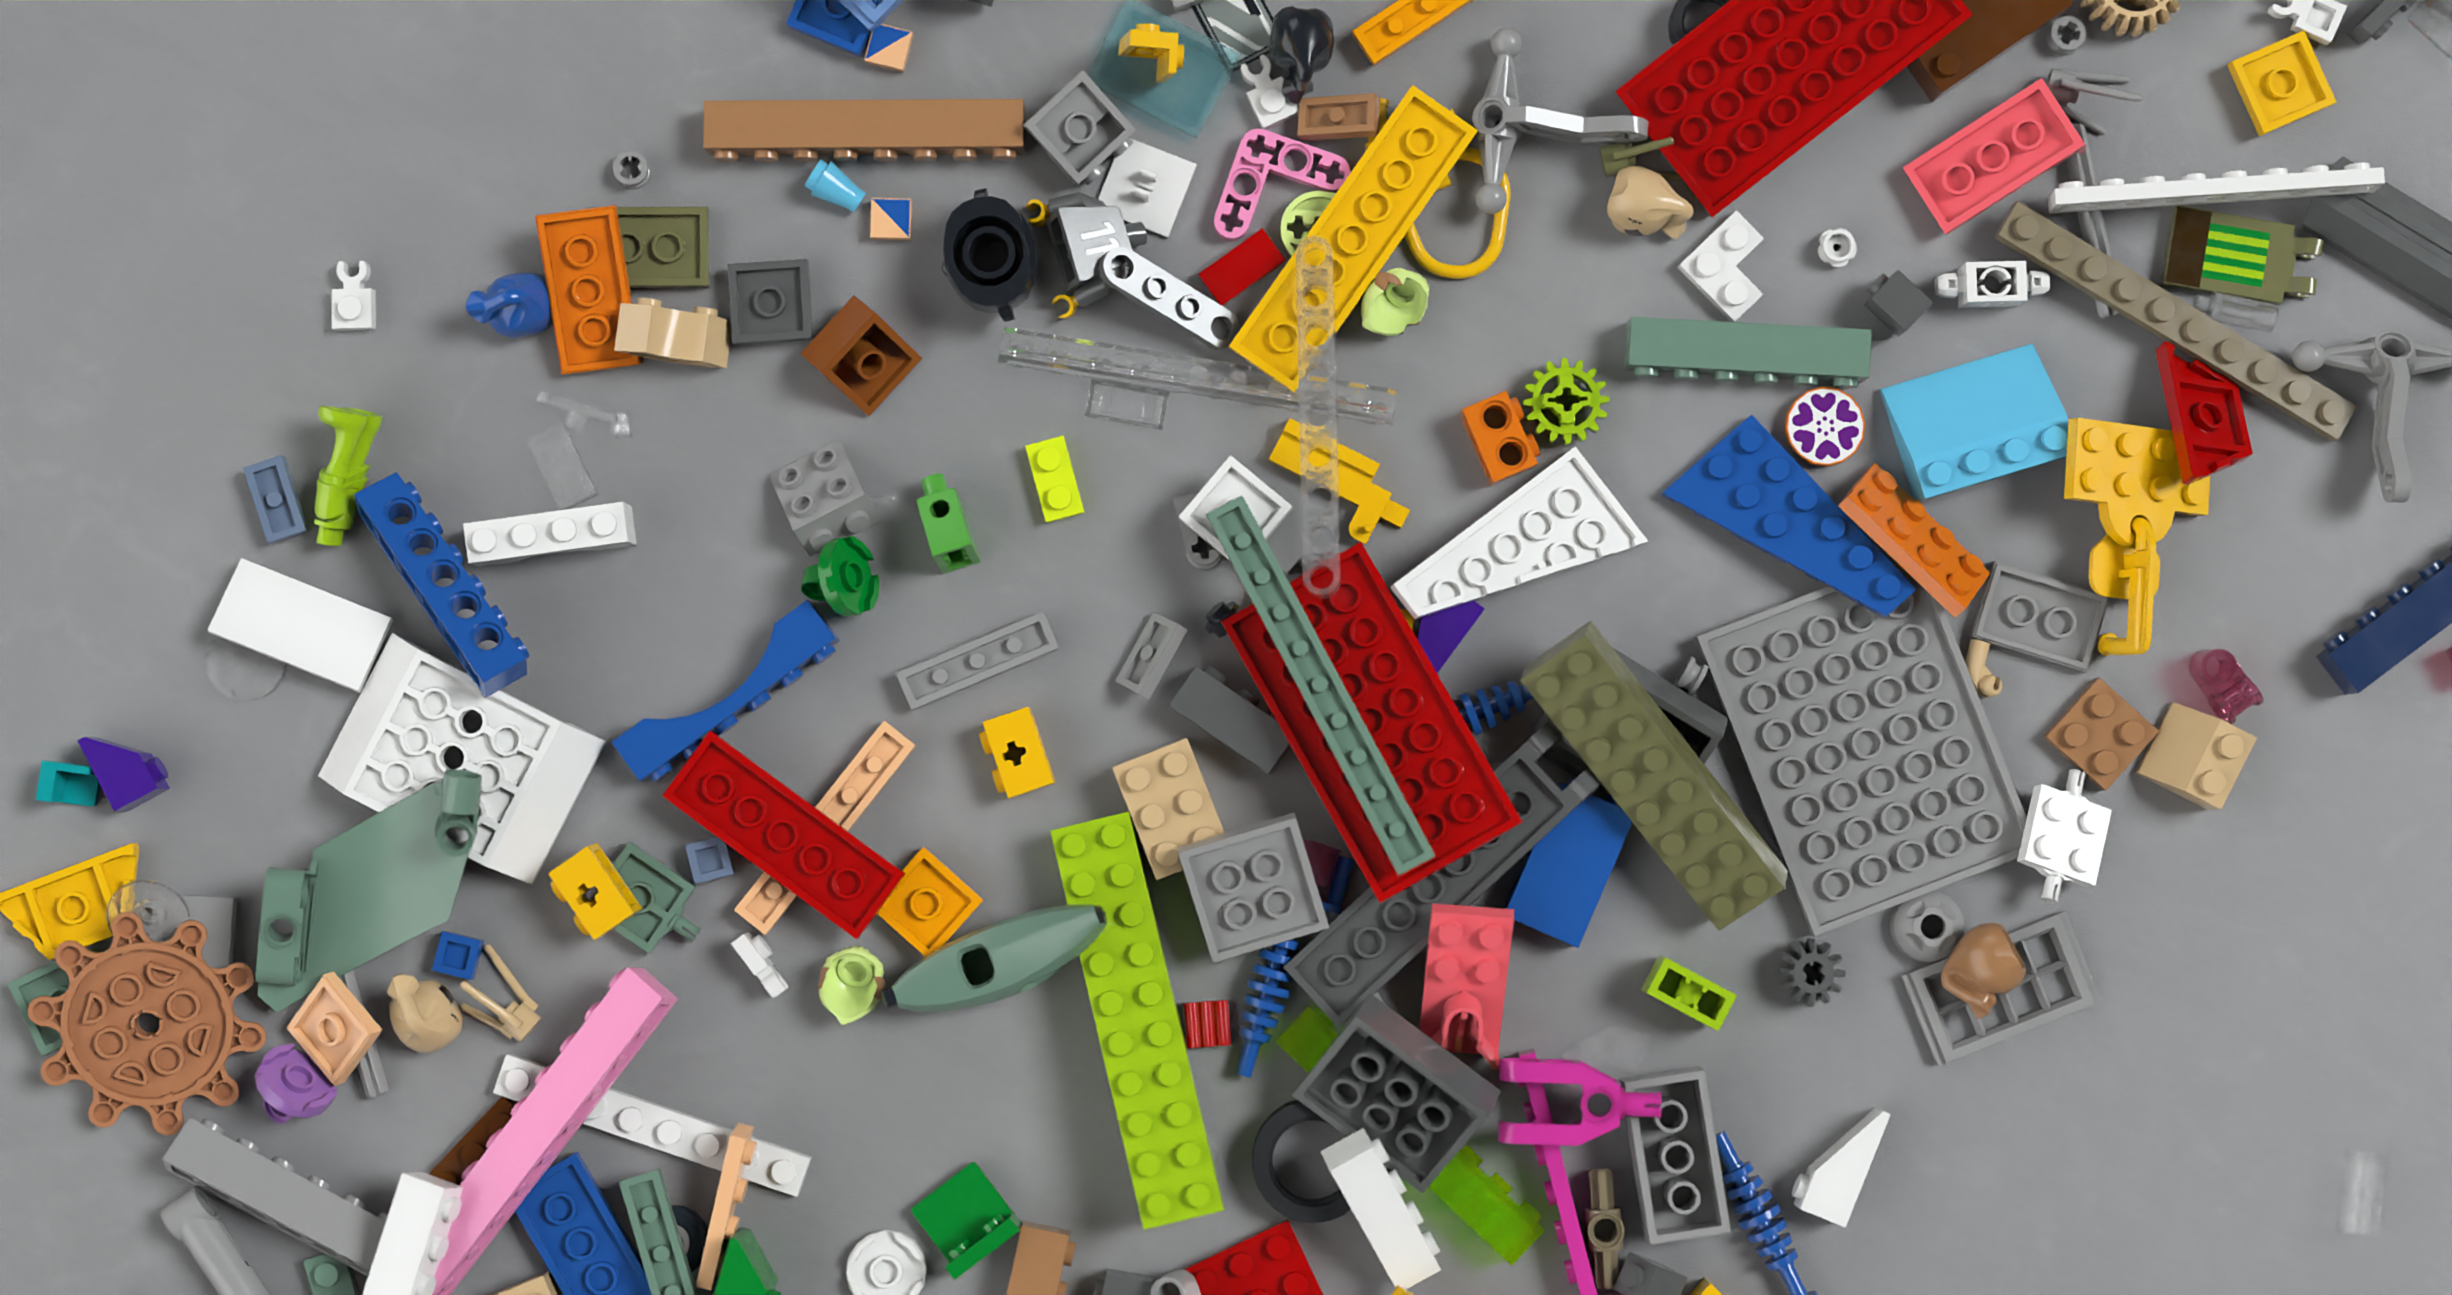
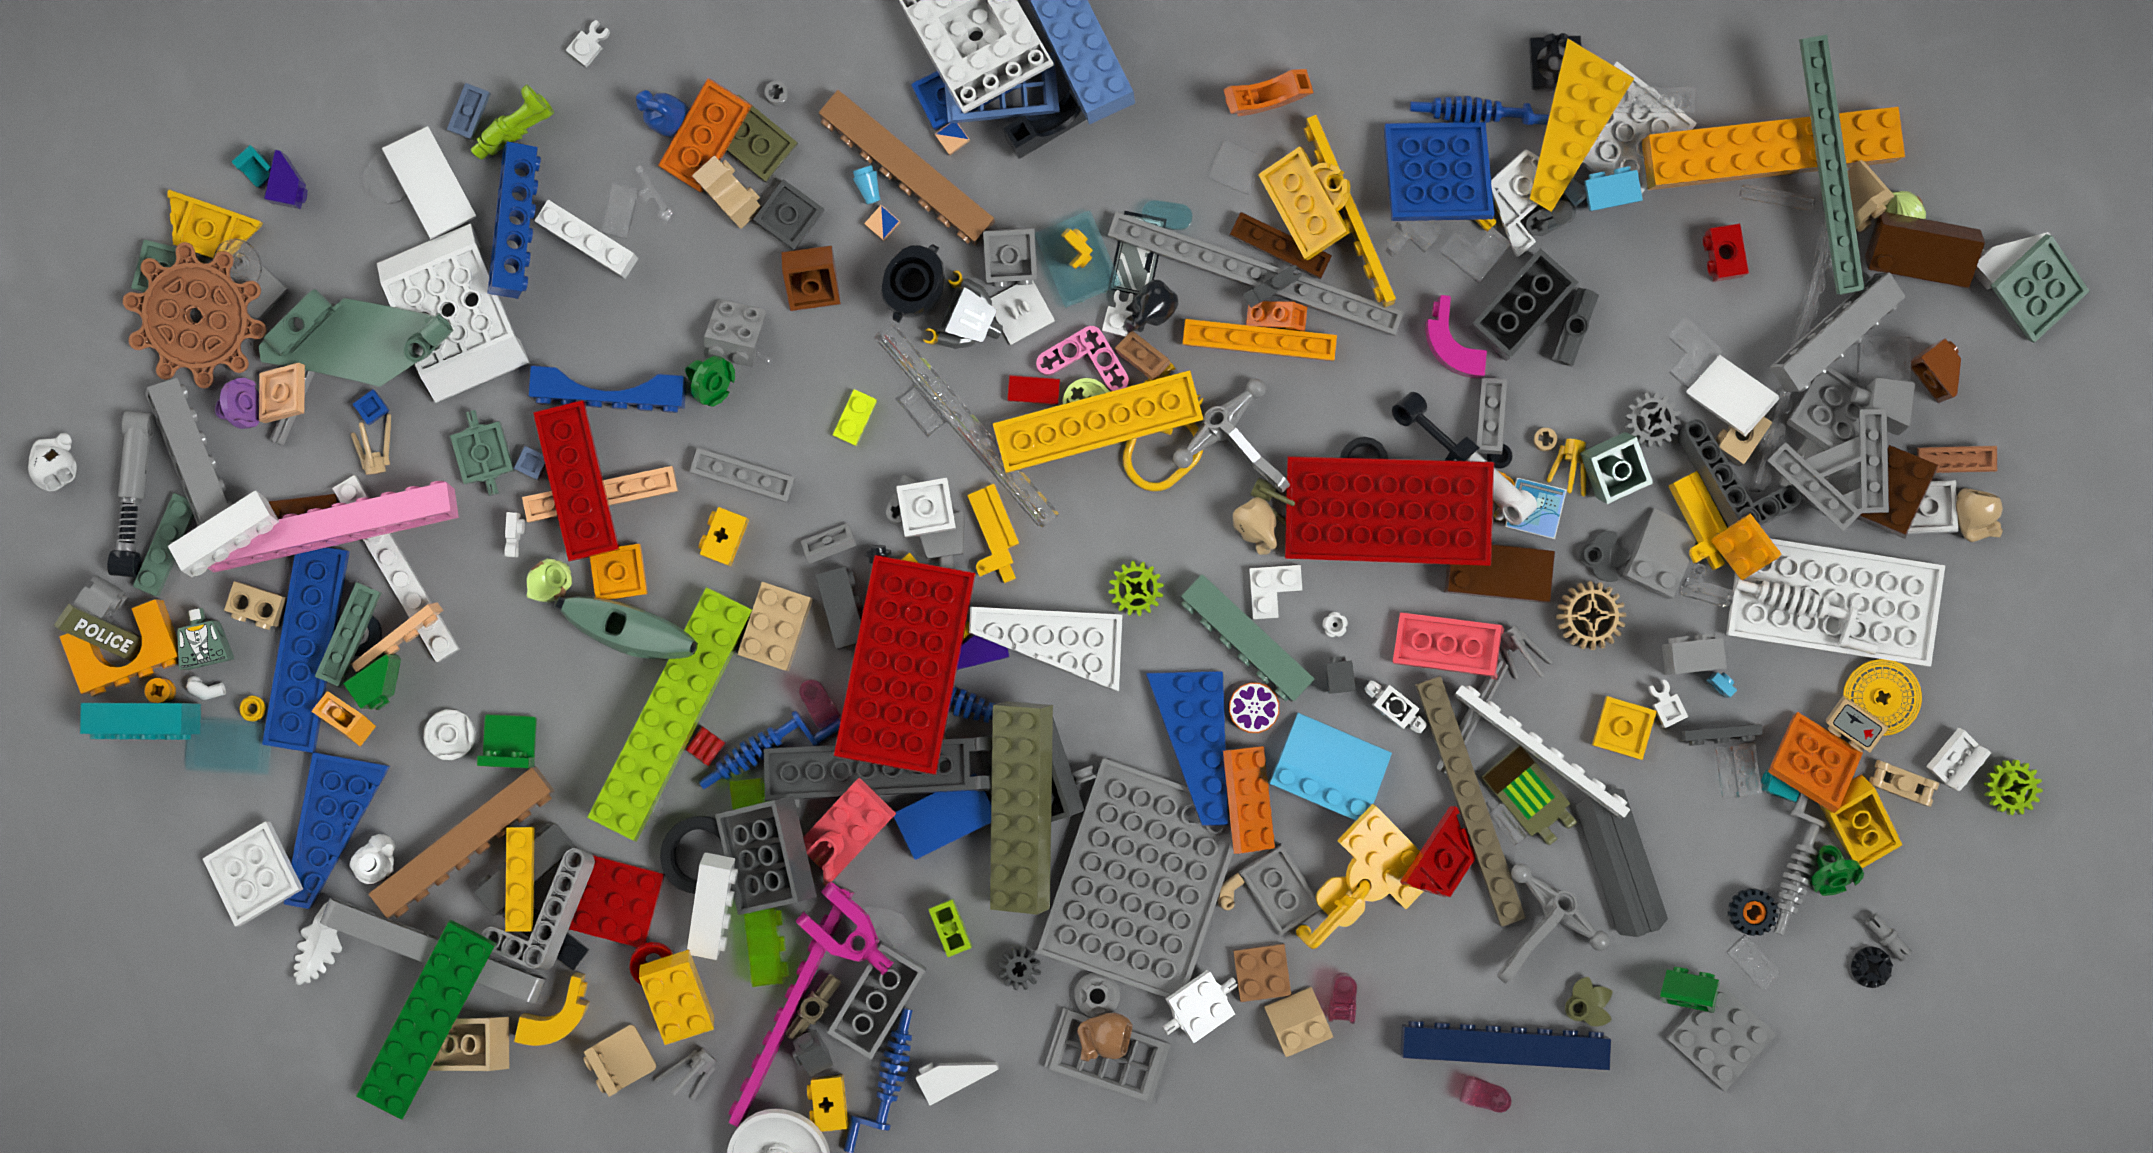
camera: 40 degrees right, 0 degrees up
(423, 1013) = (330, 421): tan piece -> none
(611, 905) = (466, 444): yellow brick -> none
(951, 535) = (779, 404): bright green torso -> none
(1168, 298) = (983, 375): plate -> none
(1253, 887) = (780, 697): light grey plate -> none
(1315, 397) = (1008, 482): clear beam -> none
(1320, 686) = (893, 626): sand green plate -> none
(1394, 302) = (1092, 469): yellowish green hair -> none
(1489, 441) = (1083, 577): orange brick -> none
(2053, 40) = (1536, 623): light grey bush -> none

